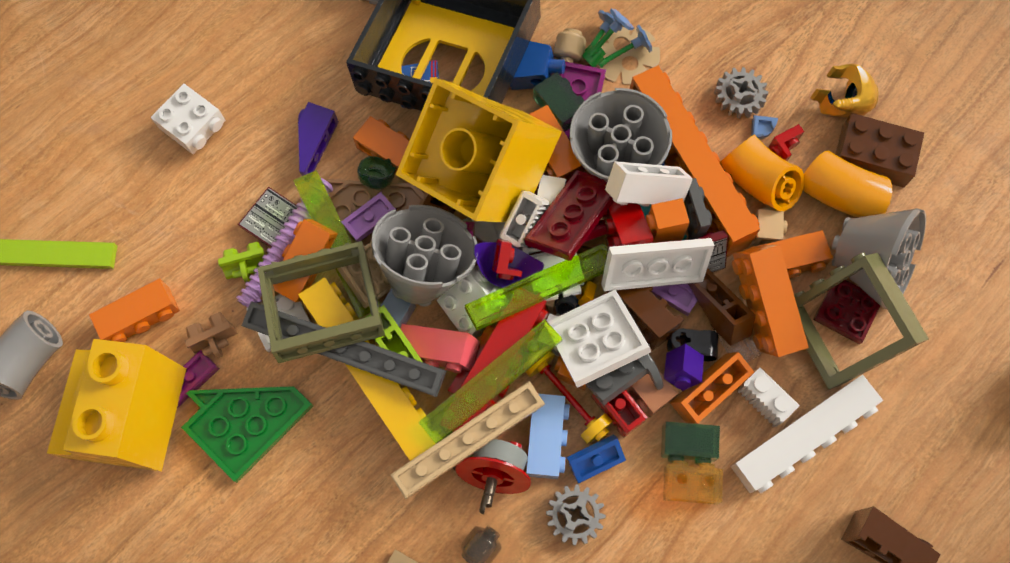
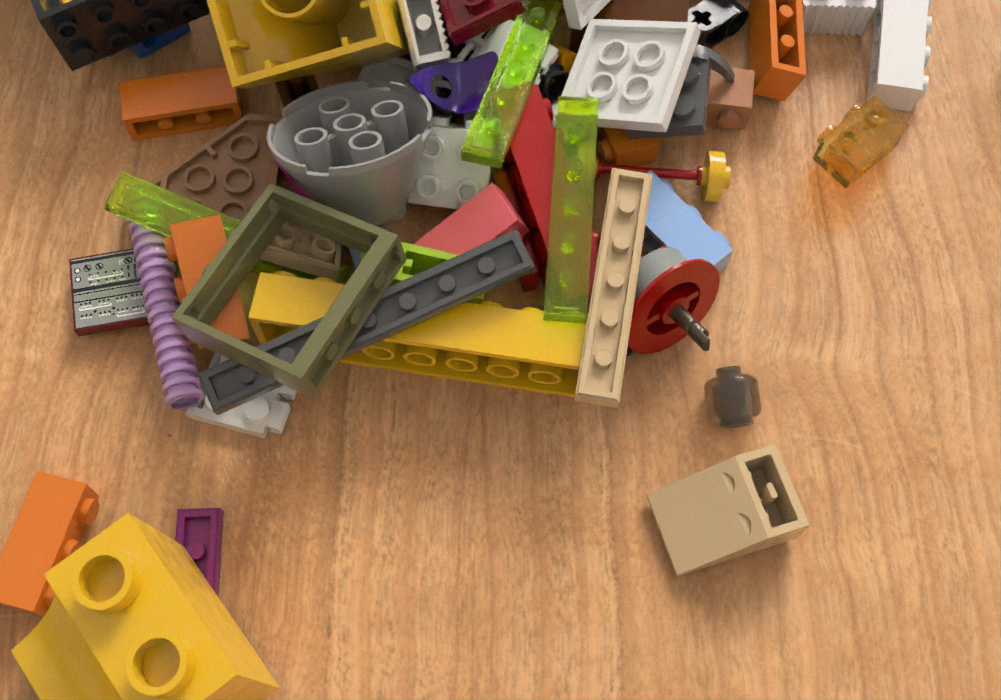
camera: 50 degrees left, 5 degrees down
(212, 339) = (181, 483): medium nougat hips -> none
(241, 264) = (128, 366): lime hips -> none
(243, 423) = (323, 538): green wing -> none
(315, 130) = (63, 159): dark purple slope -> none
(364, 219) = (236, 180): medium lavender plate -> none
(376, 172) = (194, 131): clear green hair -> none
(503, 256) = (446, 77): red bracket -> none
(587, 521) = (786, 277): light grey gear -> none
(596, 458) = (744, 206): blue plate -> none
(623, 412) = (725, 132): red brick -> none
(684, 367) = (733, 40): dark purple brick -> none
(690, 442) = (810, 109): clear green brick -> none

